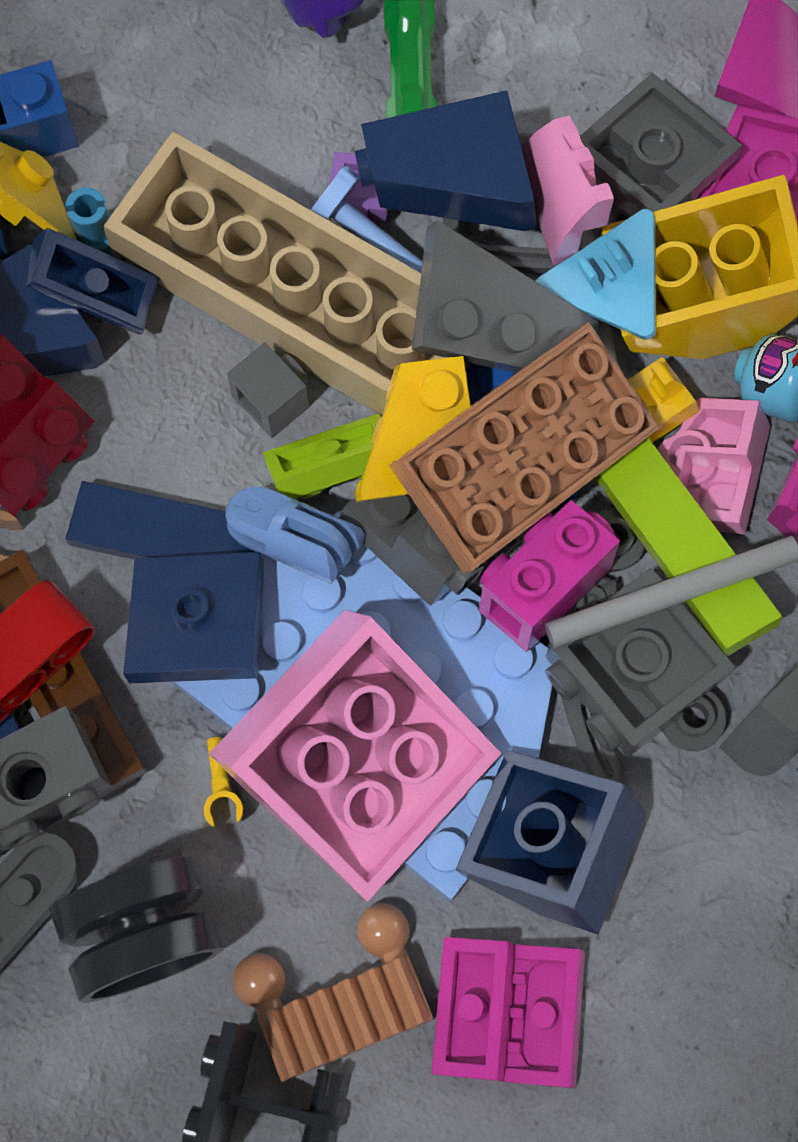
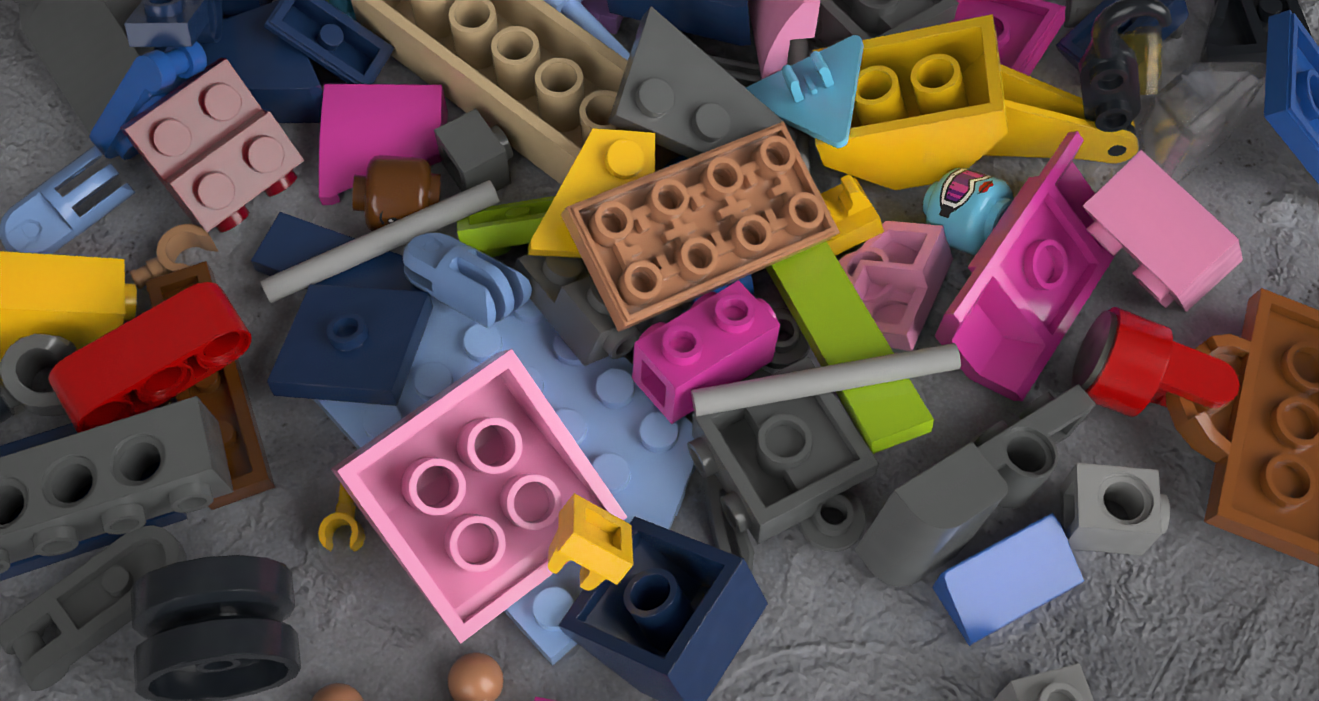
camera: 10 degrees right, 10 degrees down
(161, 378) = (372, 122): none -> dark pink slope
(196, 501) = (379, 241): none -> light grey bar
(200, 445) = (394, 189): none -> reddish brown head
(477, 787) = (592, 540): none -> yellow tile

